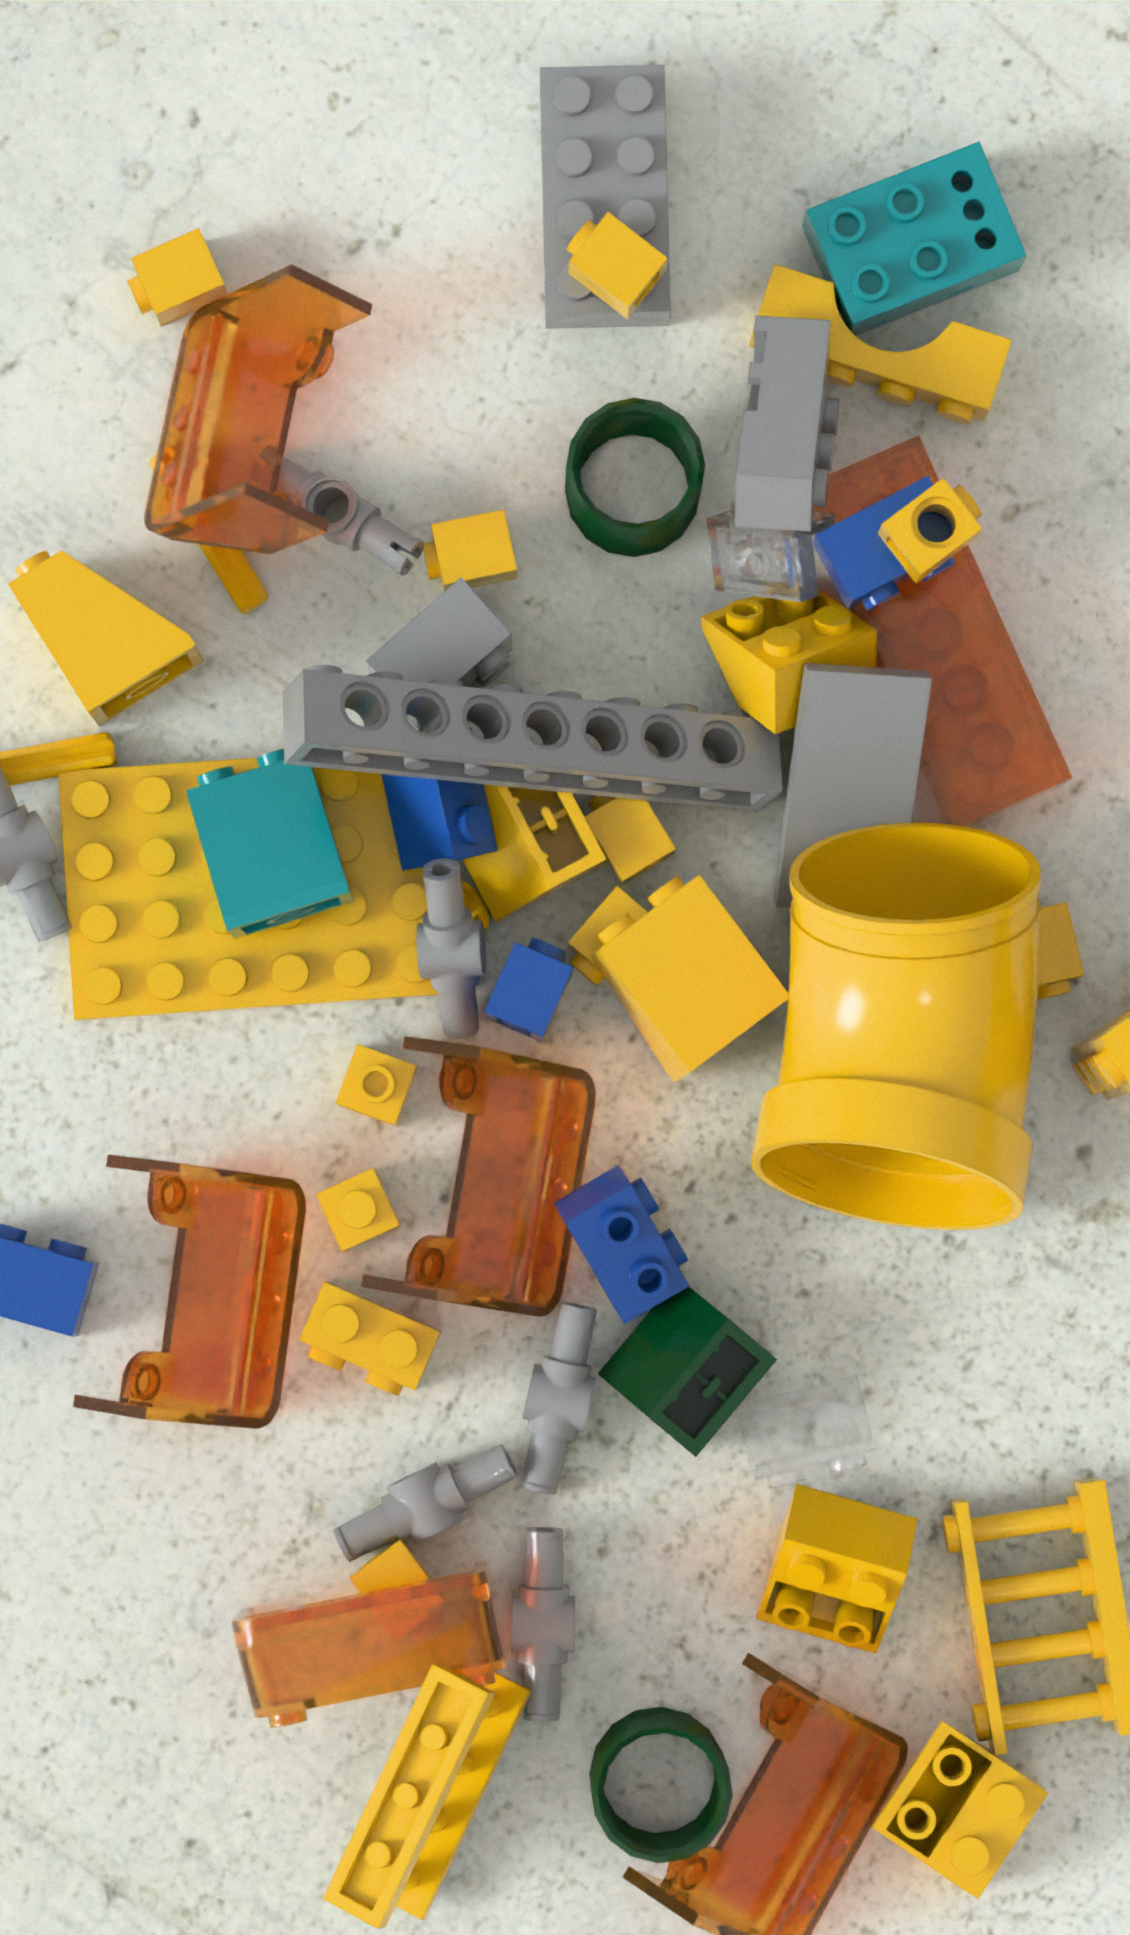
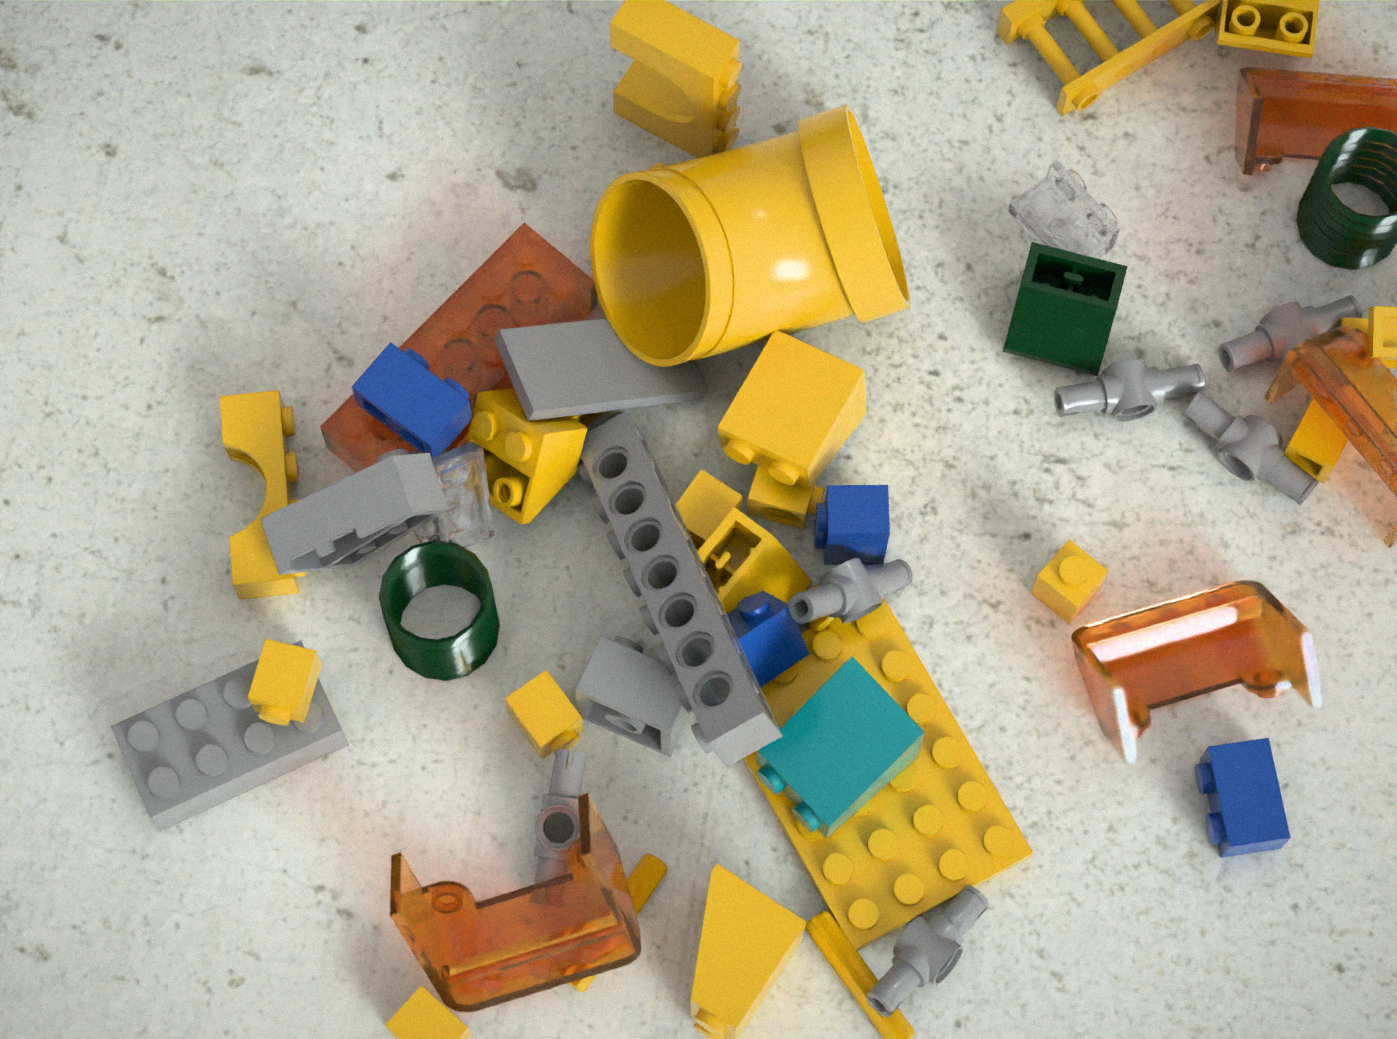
camera: 110 degrees left, 15 degrees down
(369, 1336) = (1155, 533): yellow brick -> none
(377, 1085) = (973, 608): yellow brick -> none
(516, 1159) = (1003, 488): clear orange windscreen -> none
(623, 1244) = (1000, 387): blue brick -> none
(837, 1568) = (1148, 158): yellow slope -> none
(914, 239) = (169, 499): teal piece -> none
(915, 552) = (403, 376): yellow brick -> none

